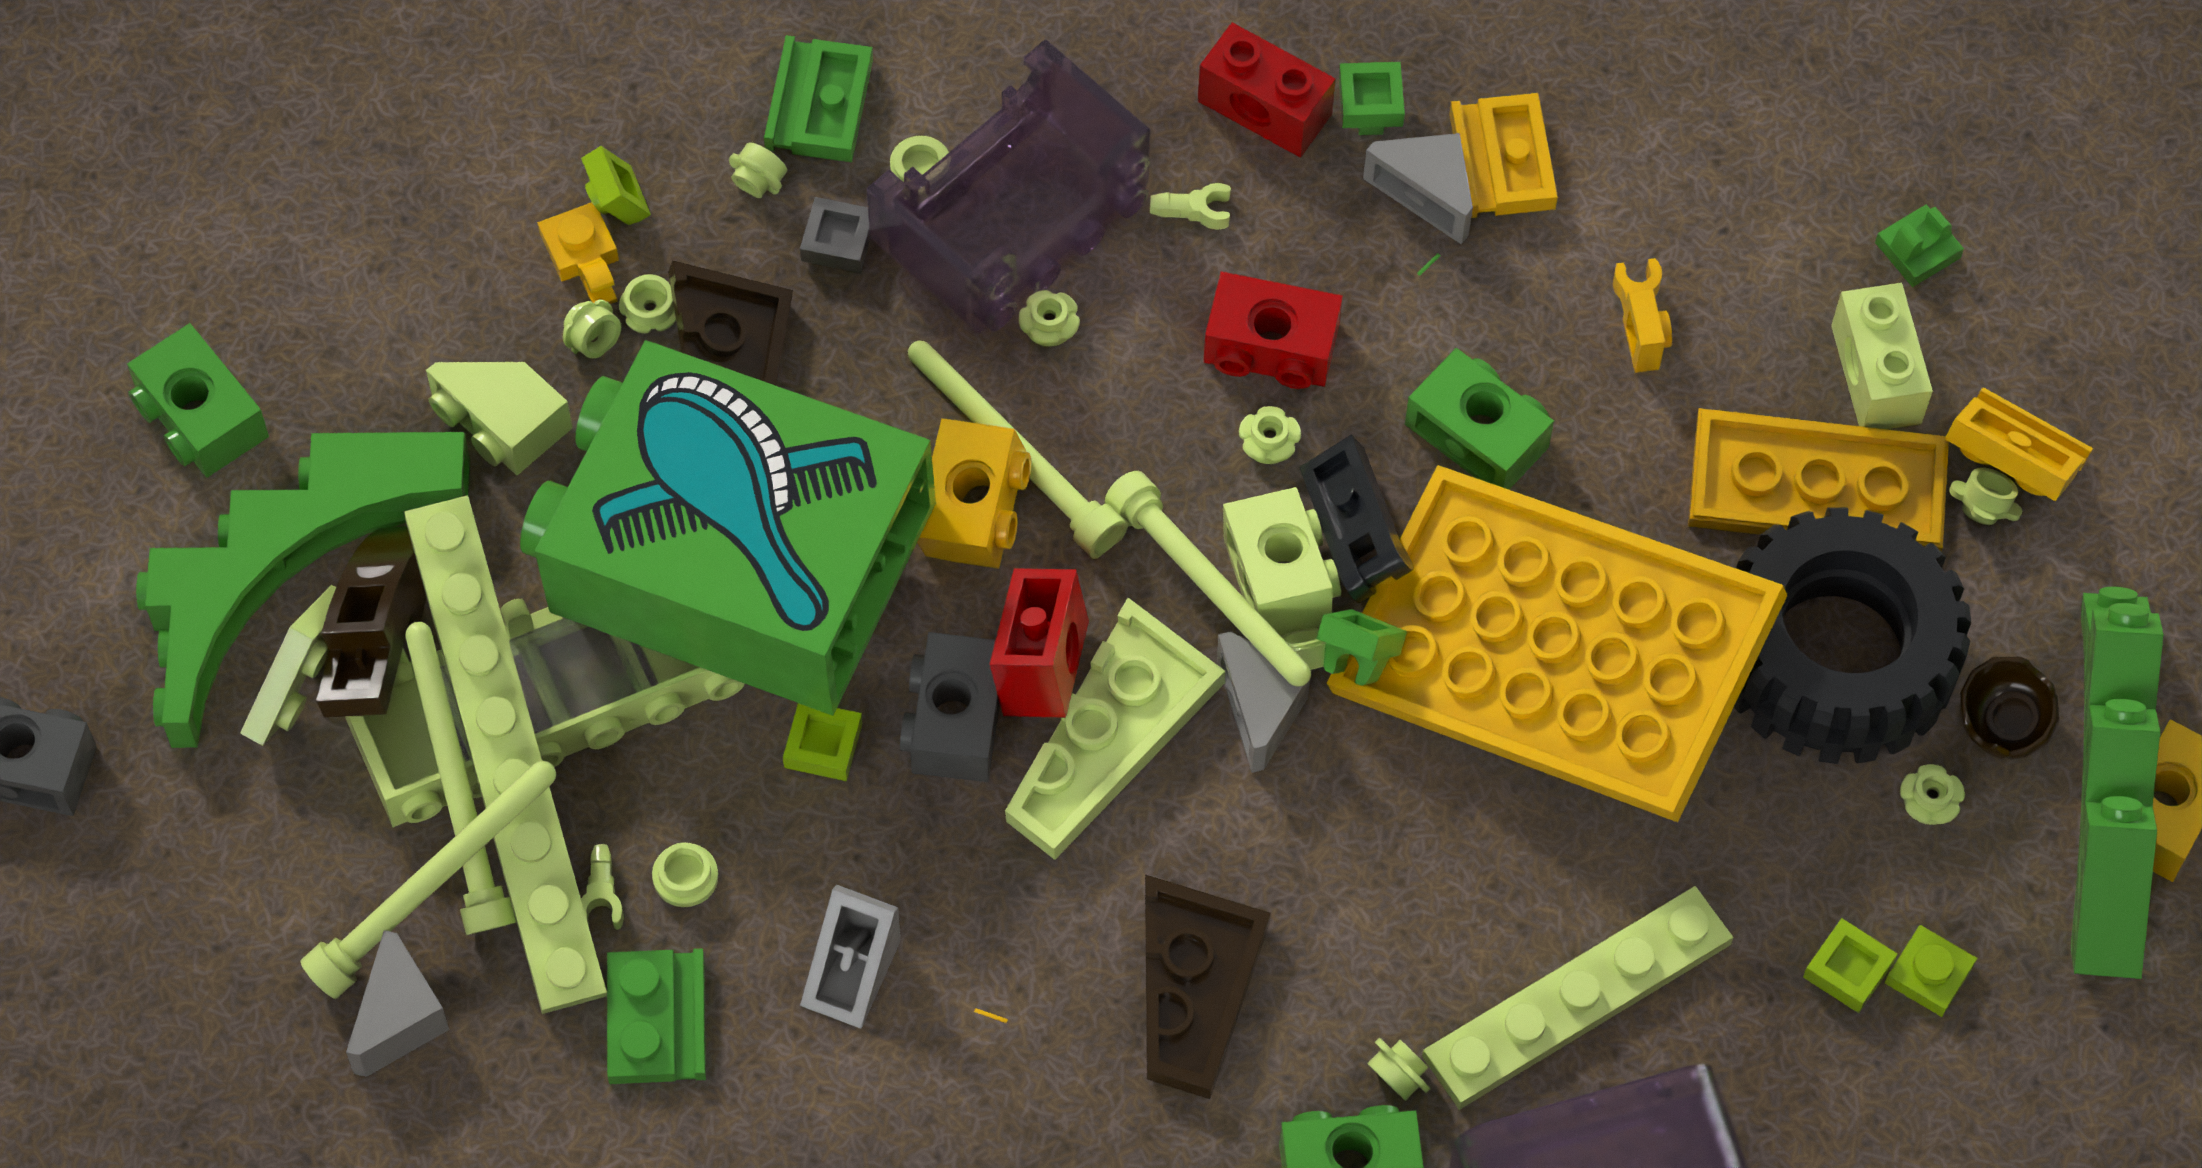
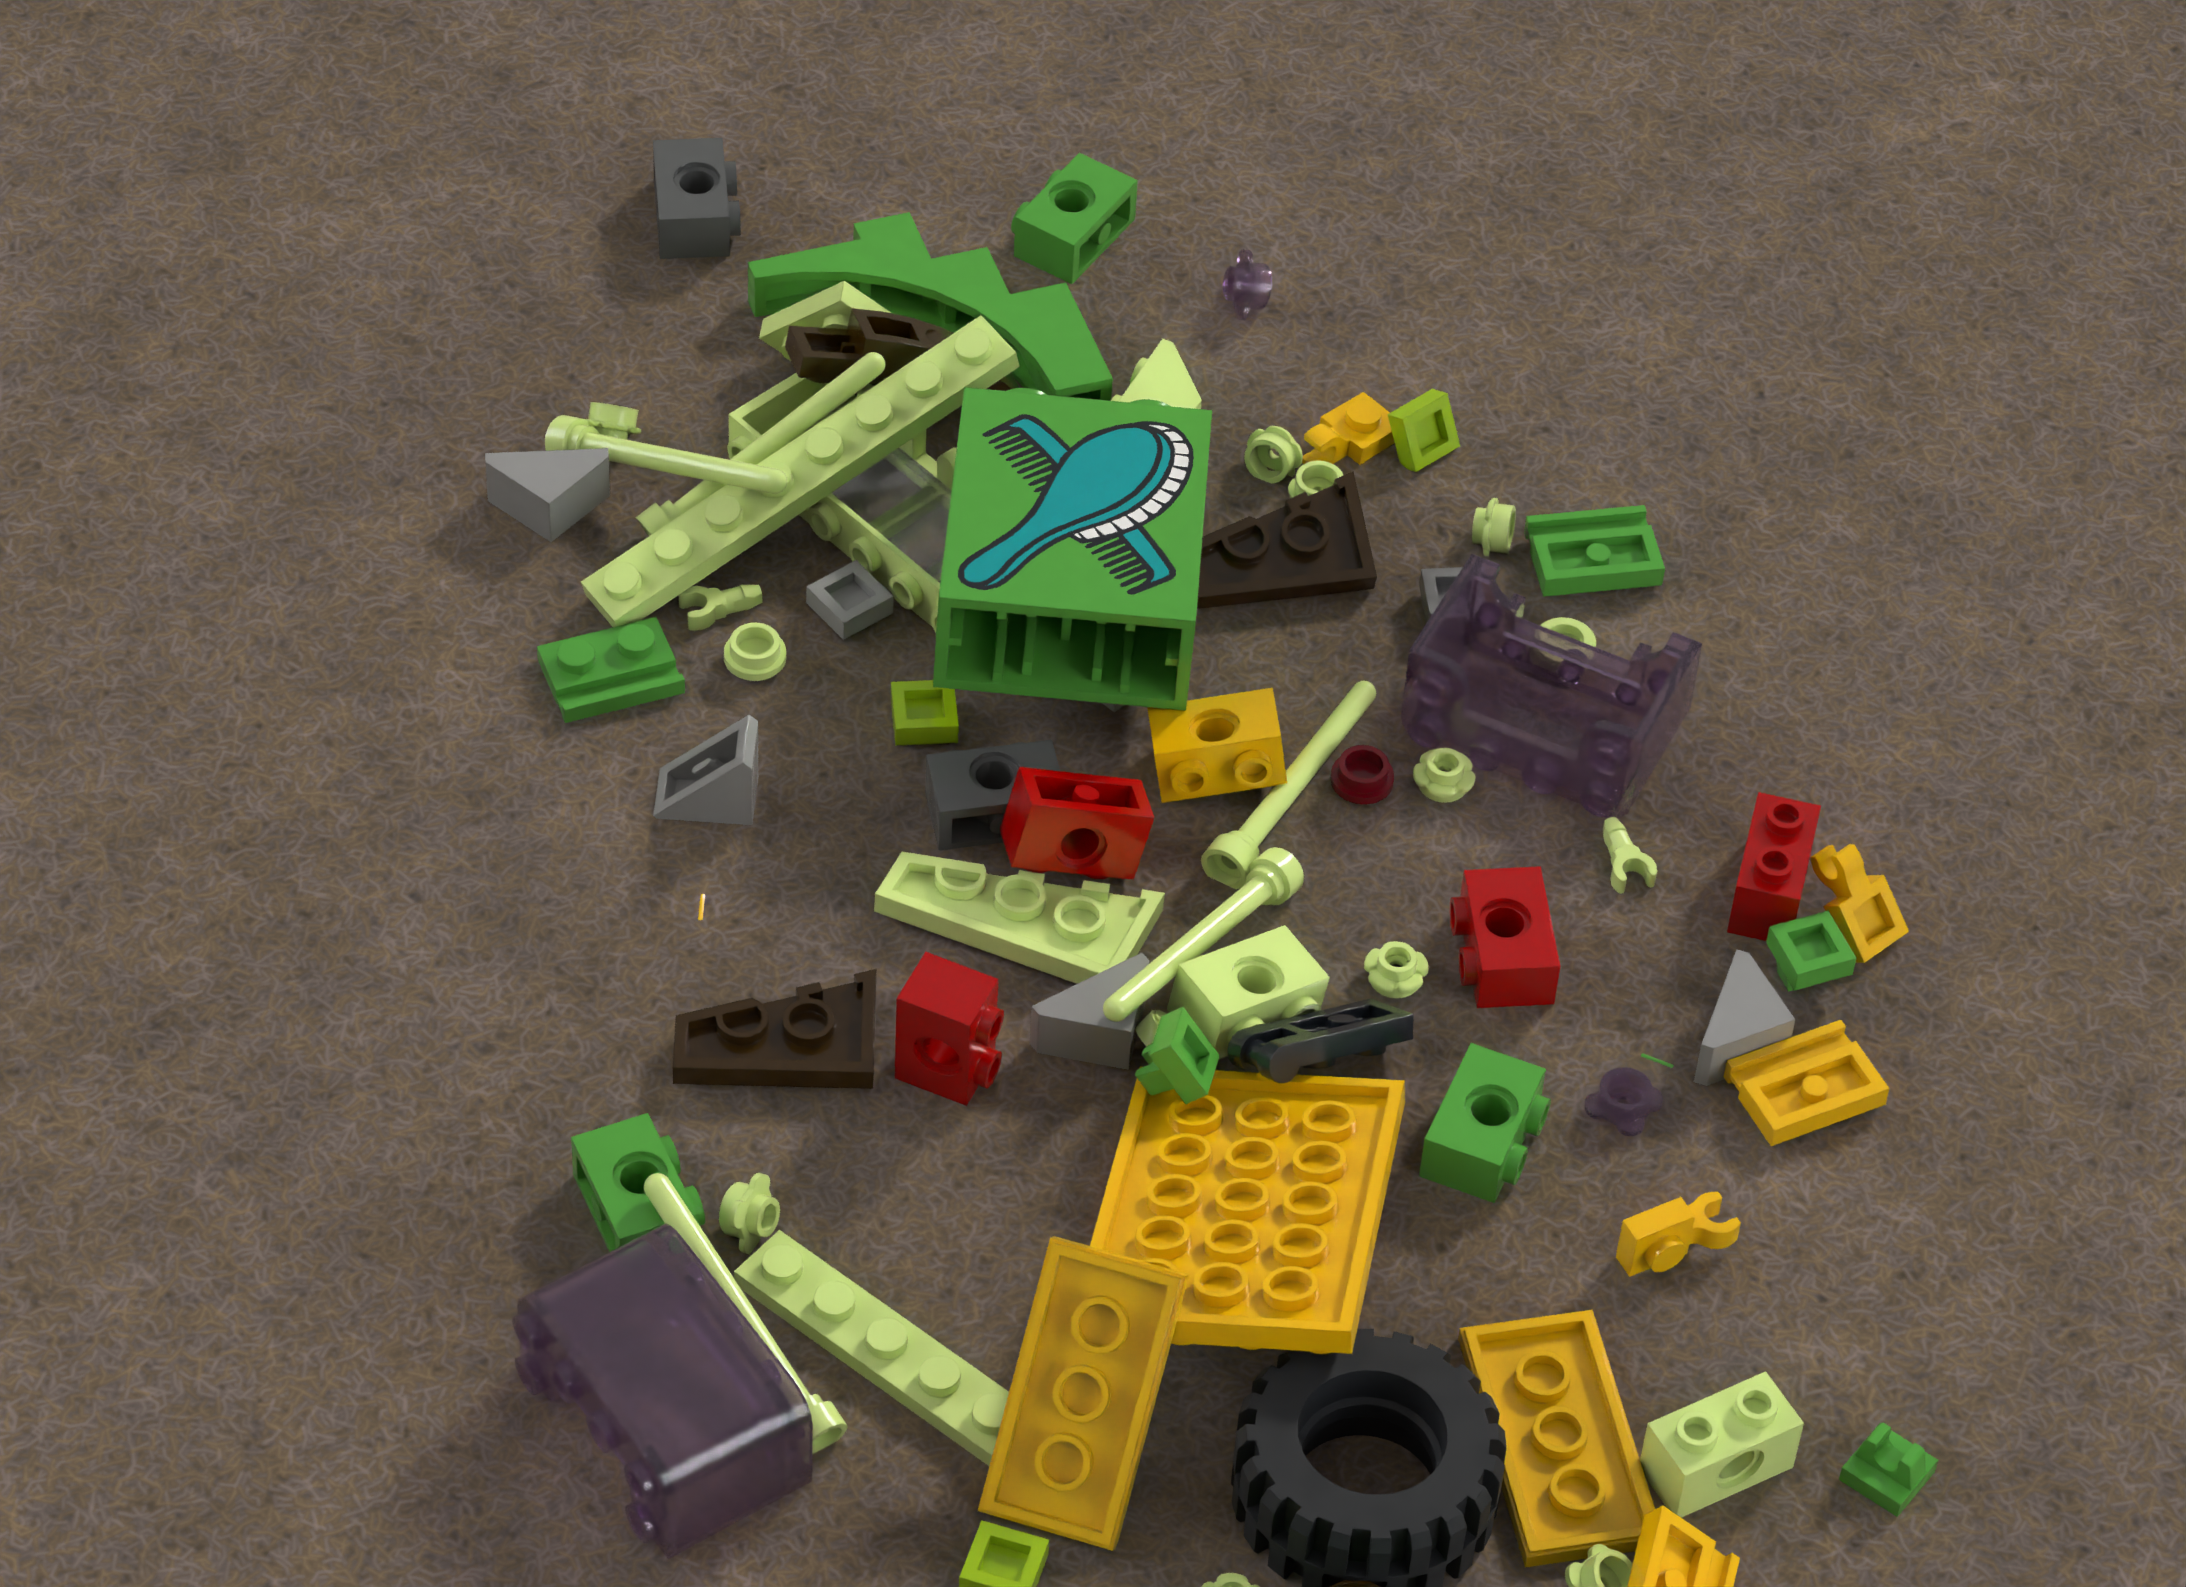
camera: 70 degrees right, 15 degrees down
(316, 921) = (613, 420): none -> yellowish green plate
(352, 275) = (1247, 284): none -> clear purple plate
(648, 765) = (849, 599): none -> light grey plate
(1028, 387) = (1362, 775): none -> dark red plate
(1262, 827) = (948, 1029): none -> red brick
(1329, 36) = (1862, 904): none -> yellow plate
(1462, 1118) = (826, 1420): none -> yellowish green piece
(1475, 288) = (1626, 1085): none -> clear purple plate
(1733, 832) = (1083, 1393): none -> yellow tile

